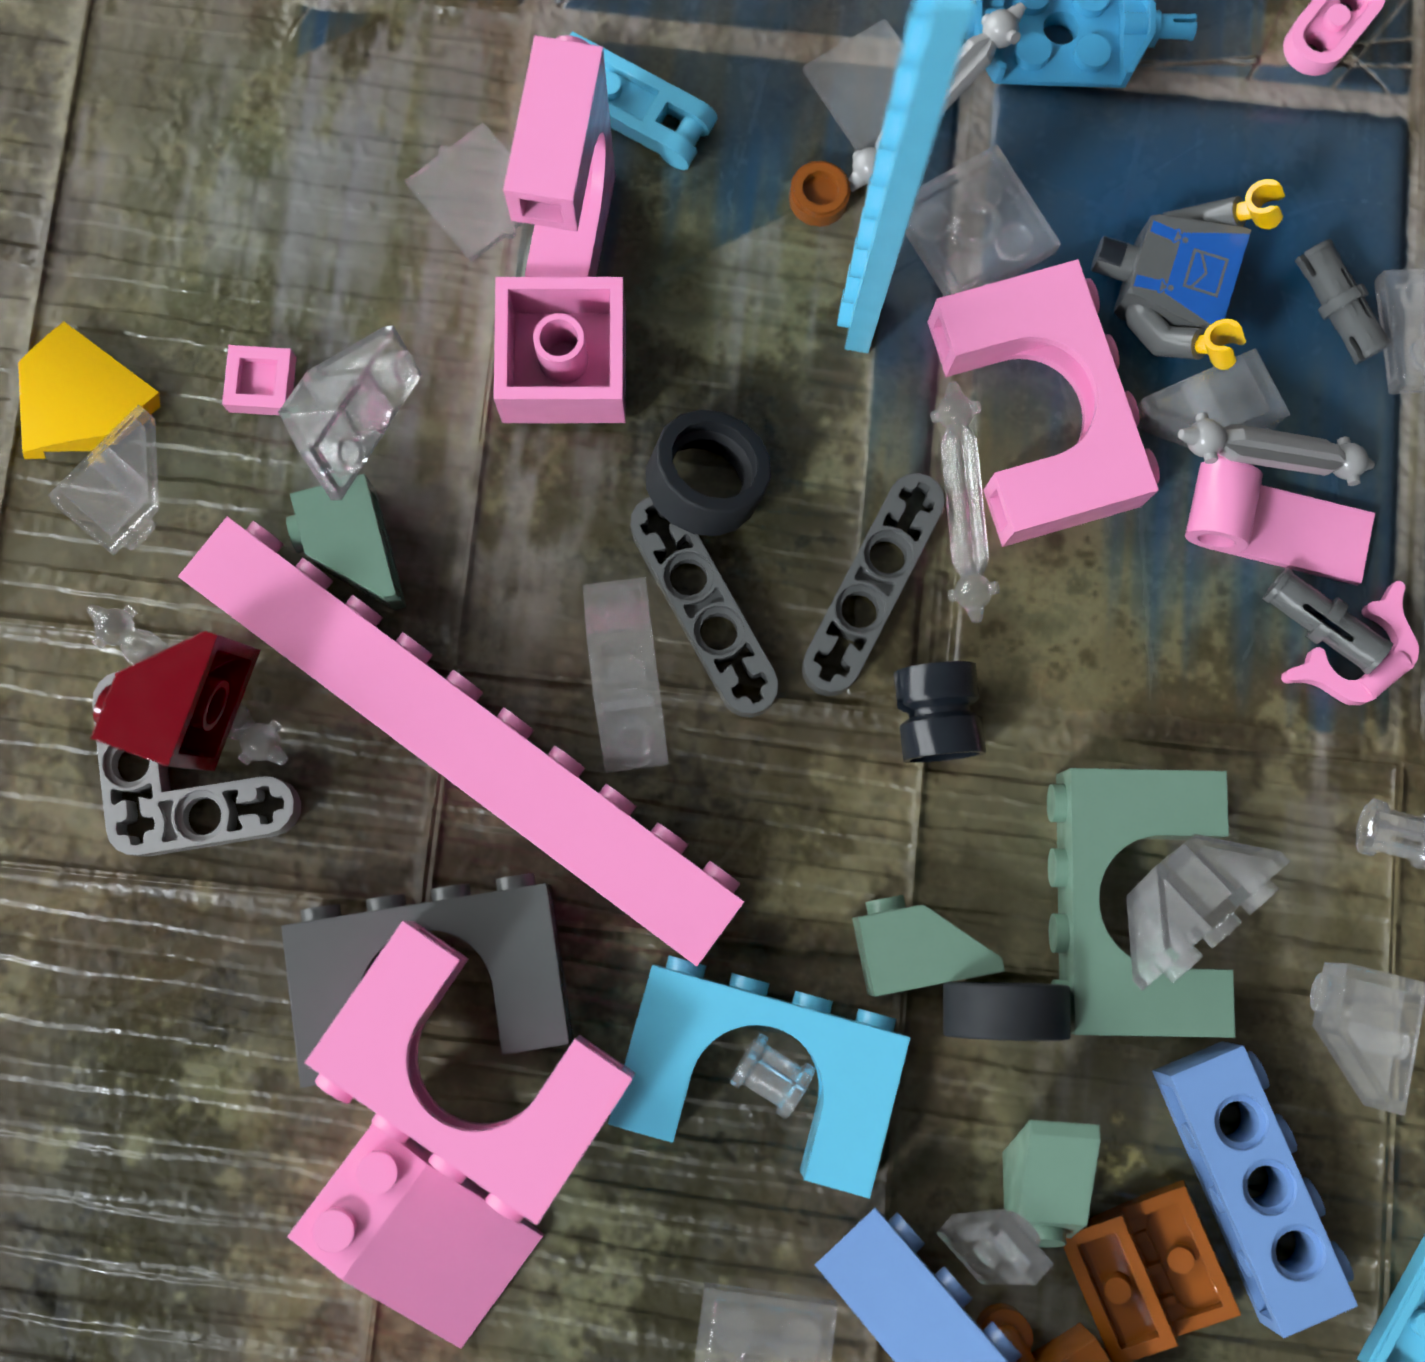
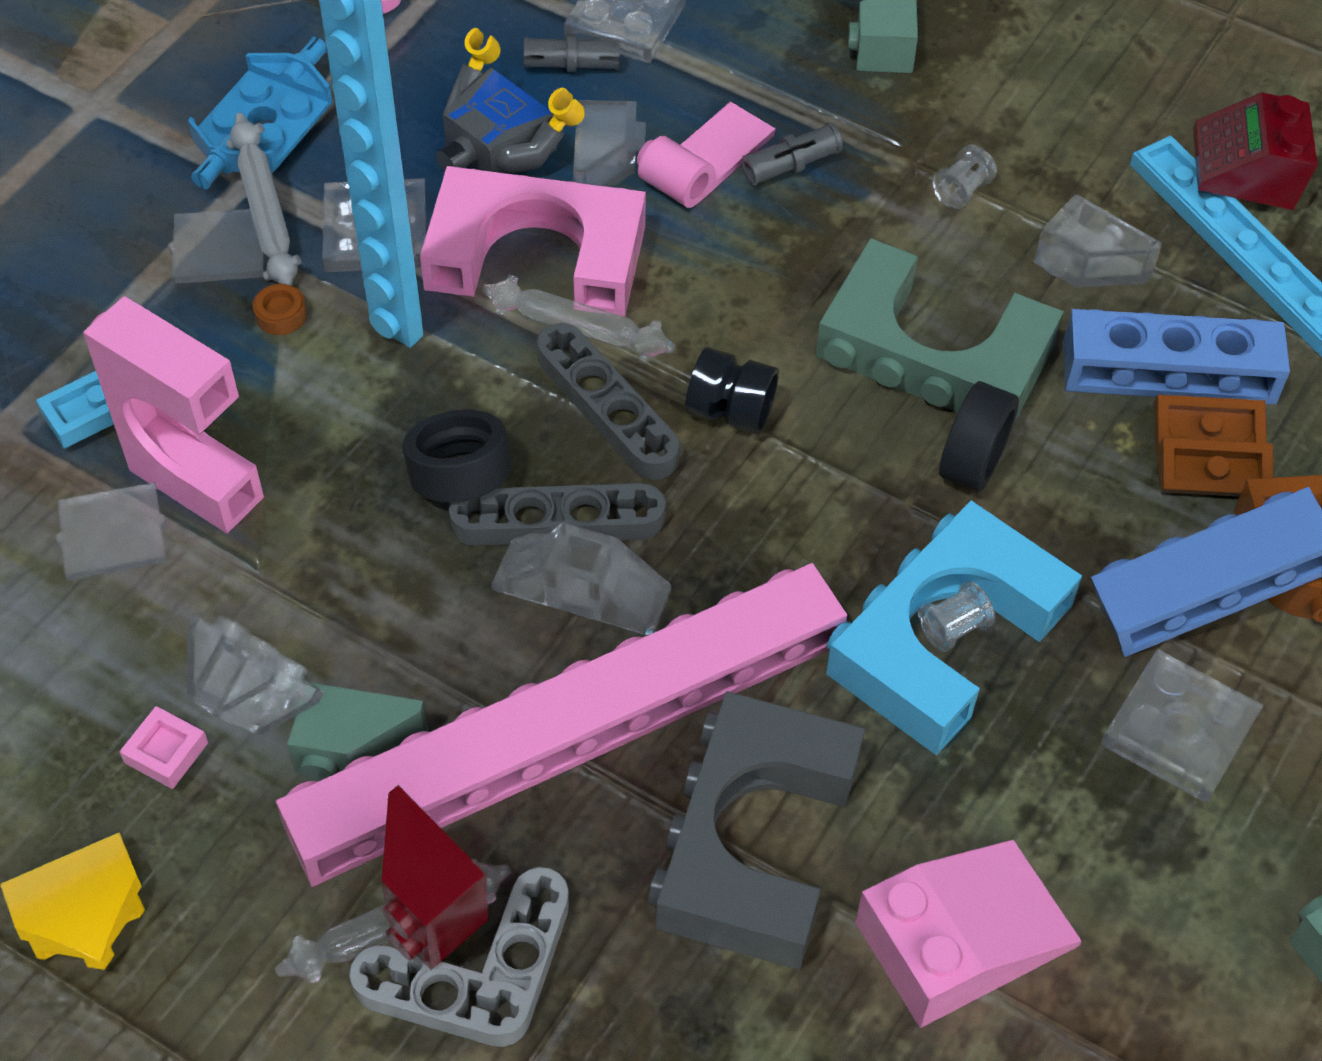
camera: 60 degrees left, 25 degrees down
(115, 485) = (184, 884): clear slope -> none
(374, 1058) = (810, 855): bright pink arch -> none
(560, 349) = (294, 508): bright pink brick -> none
(915, 948) = (901, 483): sand green slope -> none
(996, 1247) = (1152, 506): clear plate -> none
(1051, 1177) = (1116, 459): sand green slope -> none
(1194, 899) = (956, 295): clear slope -> none
(1276, 449) = (656, 119): light grey wheel -> none
(1400, 659) = (826, 177): bright pink helmet -> none

